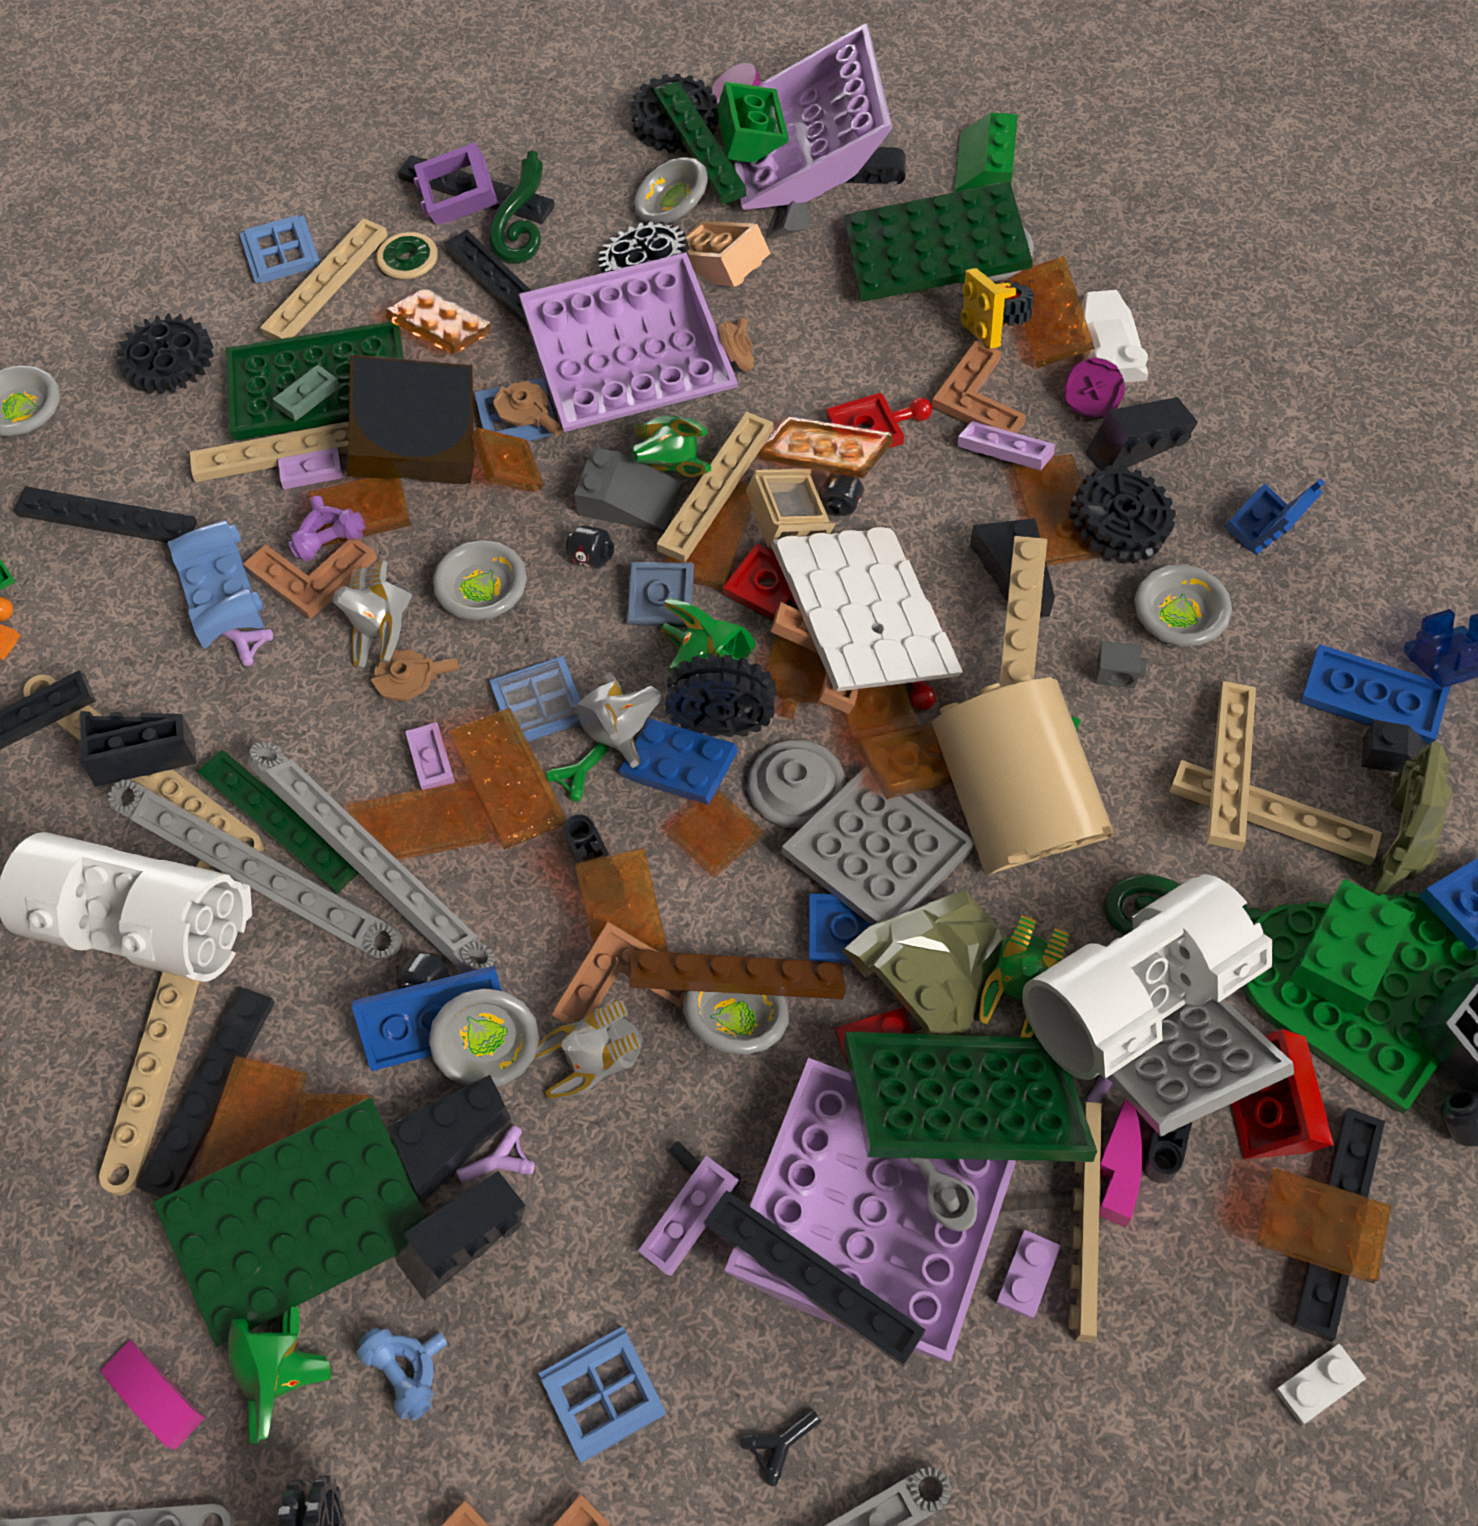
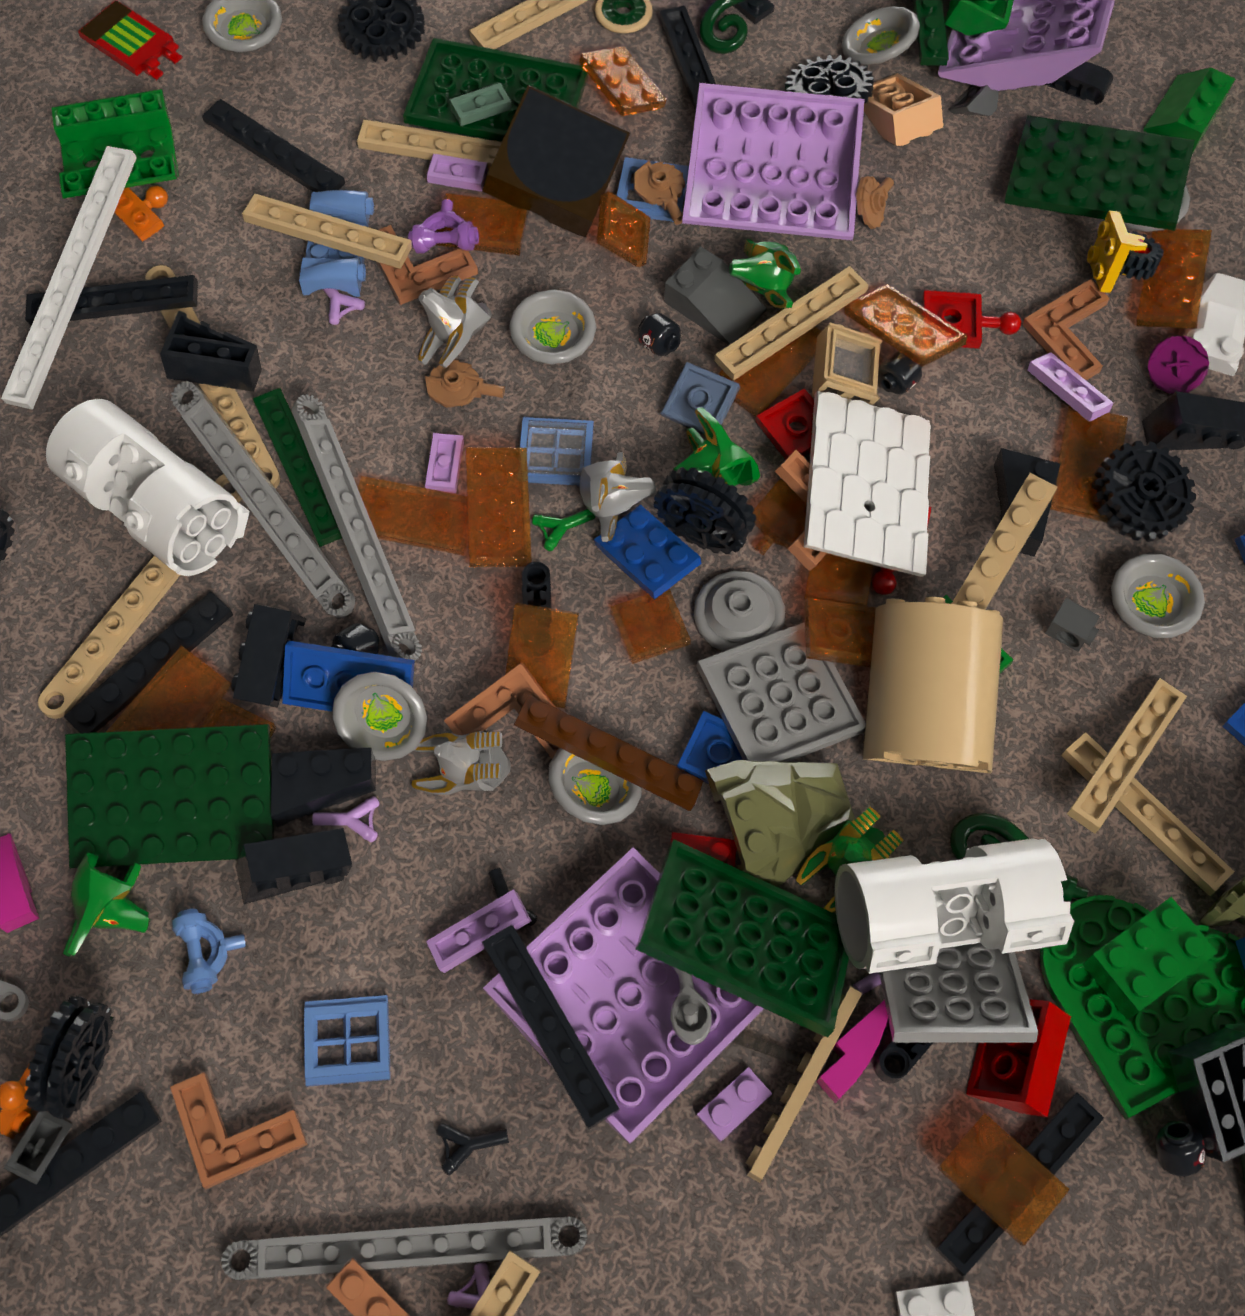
camera: 20 degrees right, 5 degrees up
(202, 573) = (327, 230): none -> tan plate
(331, 1028) = (263, 655): none -> black wedge

